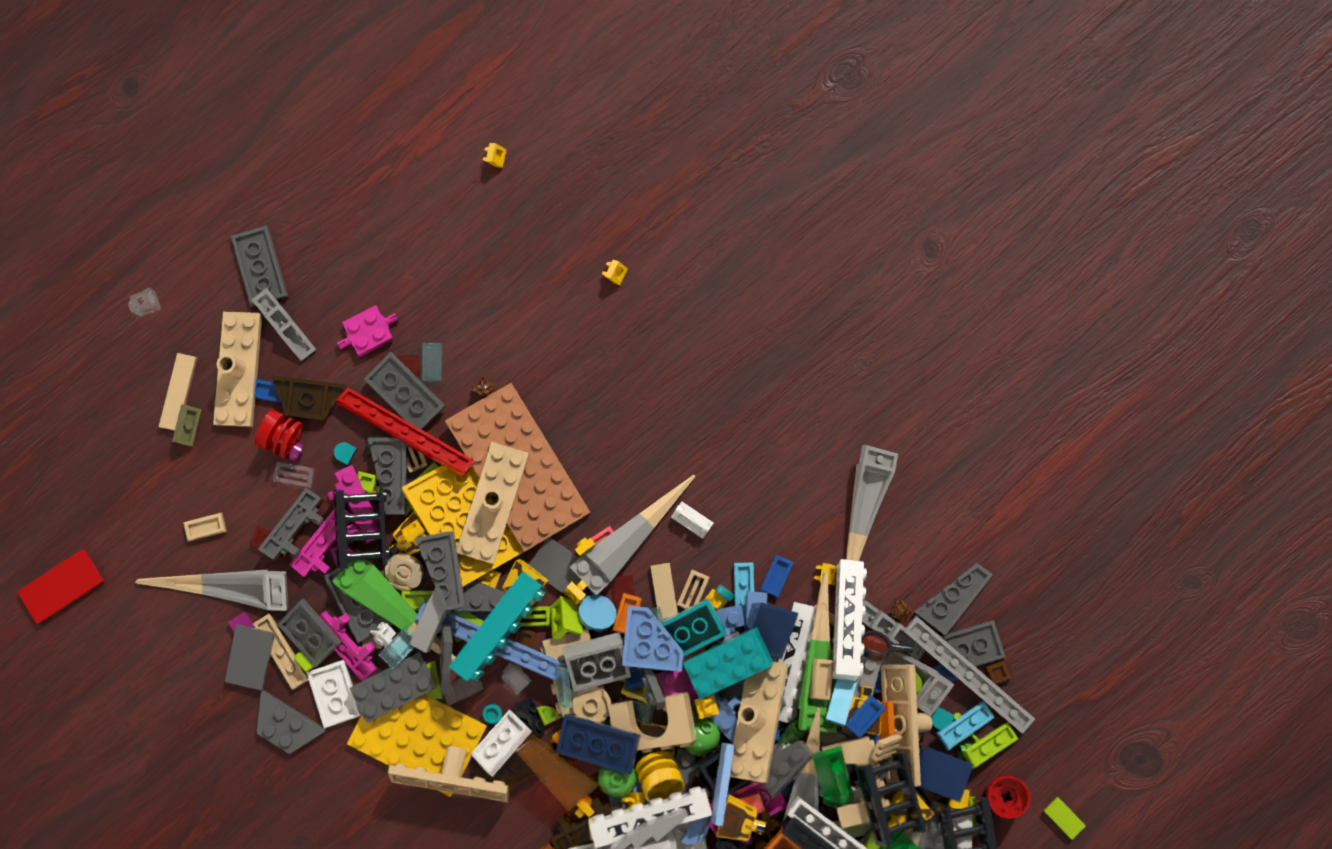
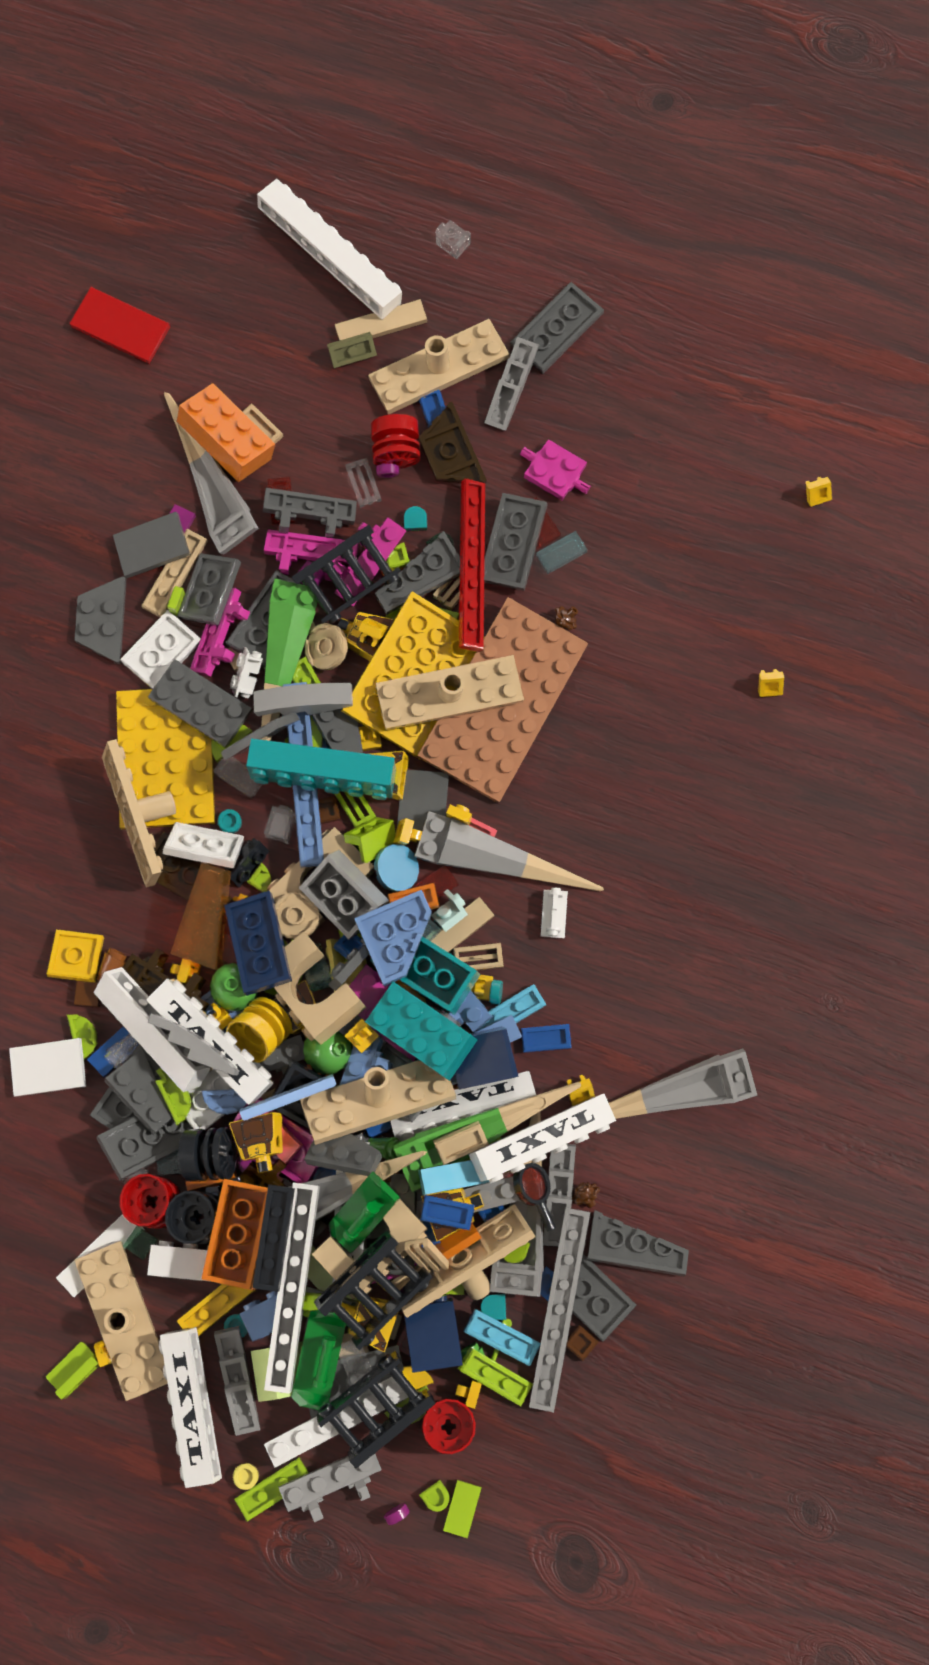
camera: 60 degrees right, 5 degrees down
(96, 397) = (329, 248): none -> white brick
(196, 554) = (225, 432): none -> orange brick
(397, 648) = (242, 683): clear light blue tile -> none
(443, 565) = (351, 679): dark grey wing -> none
(563, 686) = (298, 873): clear light blue tile -> none
(650, 592) = (451, 912): none -> light aqua bracket
(991, 768) = (470, 1393): none -> yellow tile
(1046, 831) = (436, 1496): none -> lime tile

